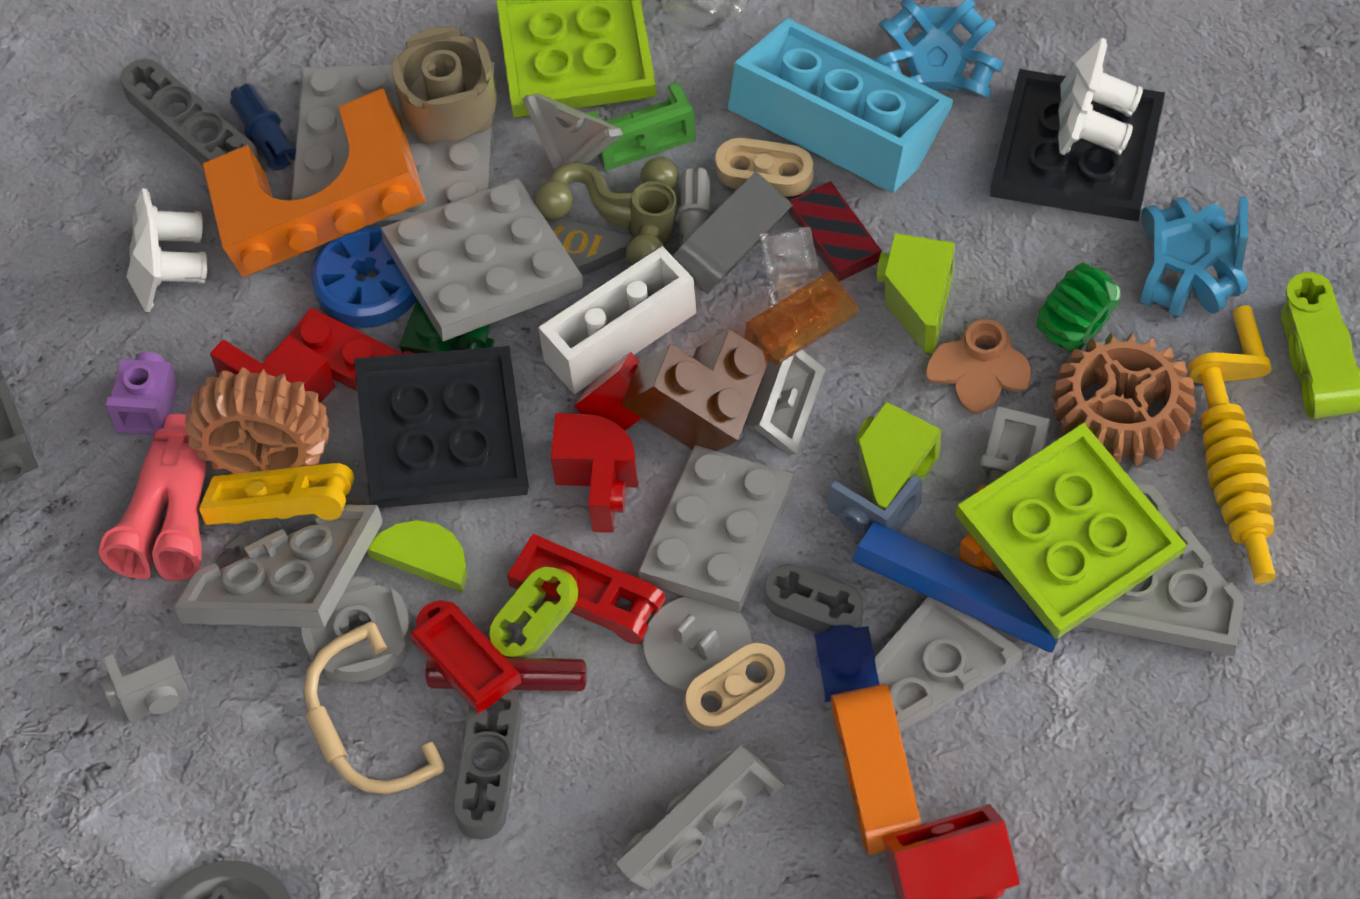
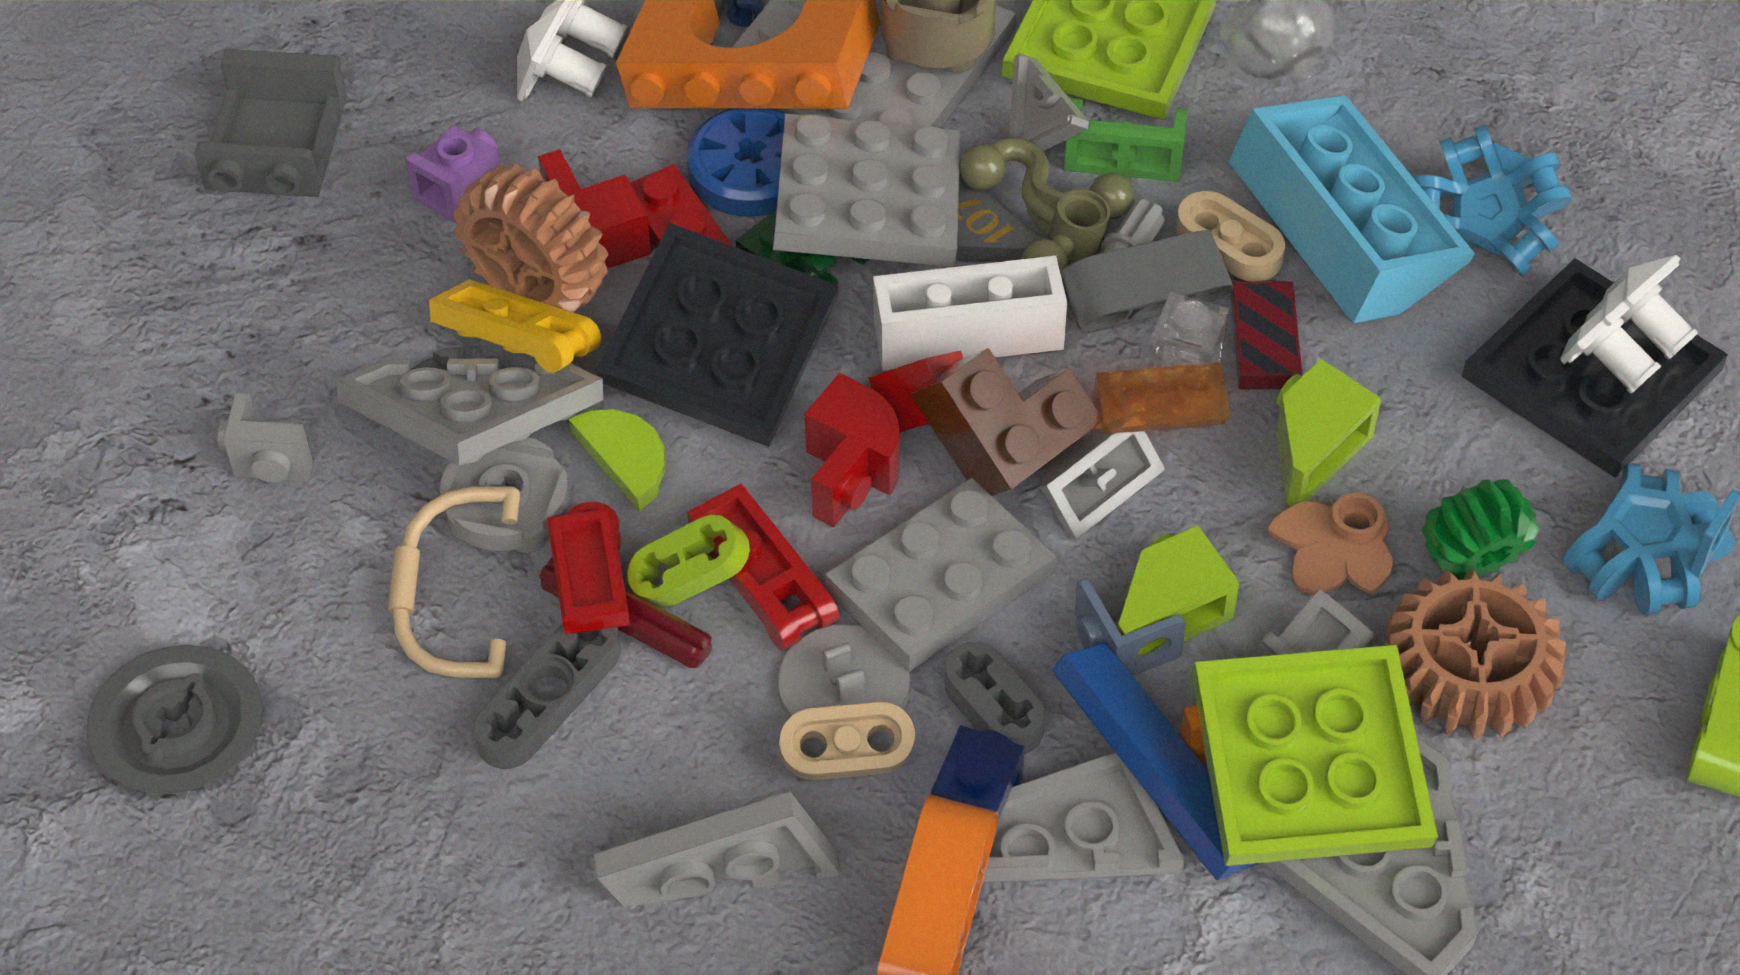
camera: 25 degrees right, 5 degrees down
(170, 476) = (391, 295): coral piece -> none
(1232, 455) = (1564, 771): yellow piece -> none

